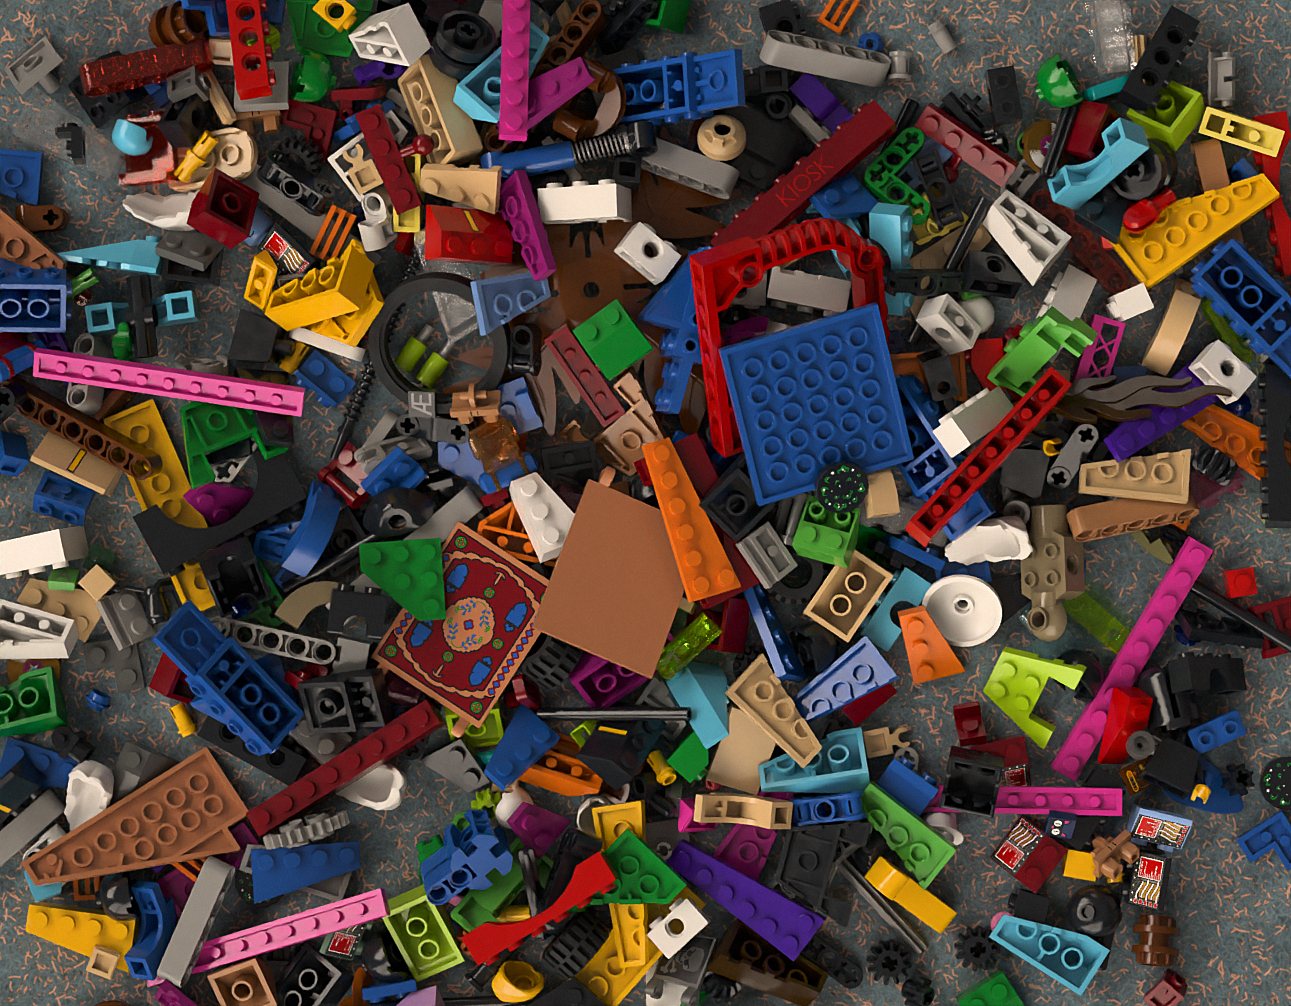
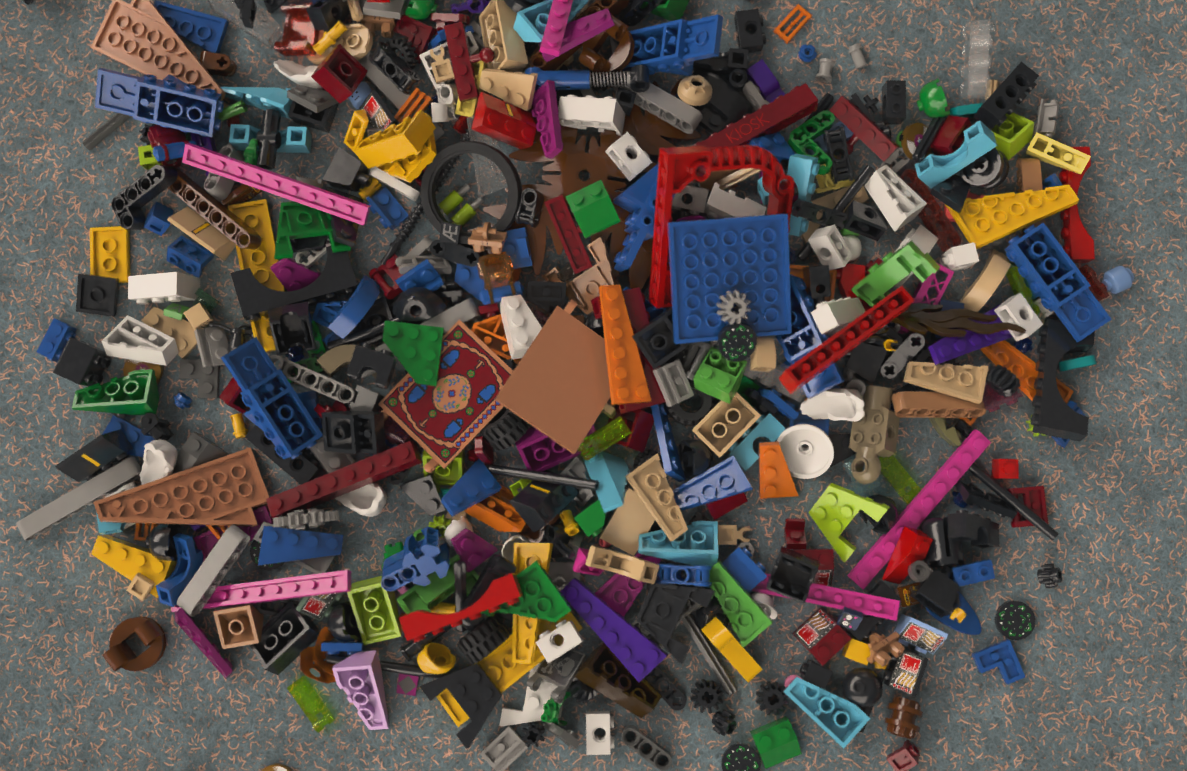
camera: 15 degrees right, 5 degrees down
(130, 138) = (287, 17): medium azure hair -> none
(505, 297) = (523, 165): medium blue wing -> none
(825, 58) = (775, 52): light grey beam -> none
(837, 443) = (727, 304): none -> light grey gear
(1147, 211) = (984, 195): red arm -> none
(1229, 780) = (980, 611): black gear -> none

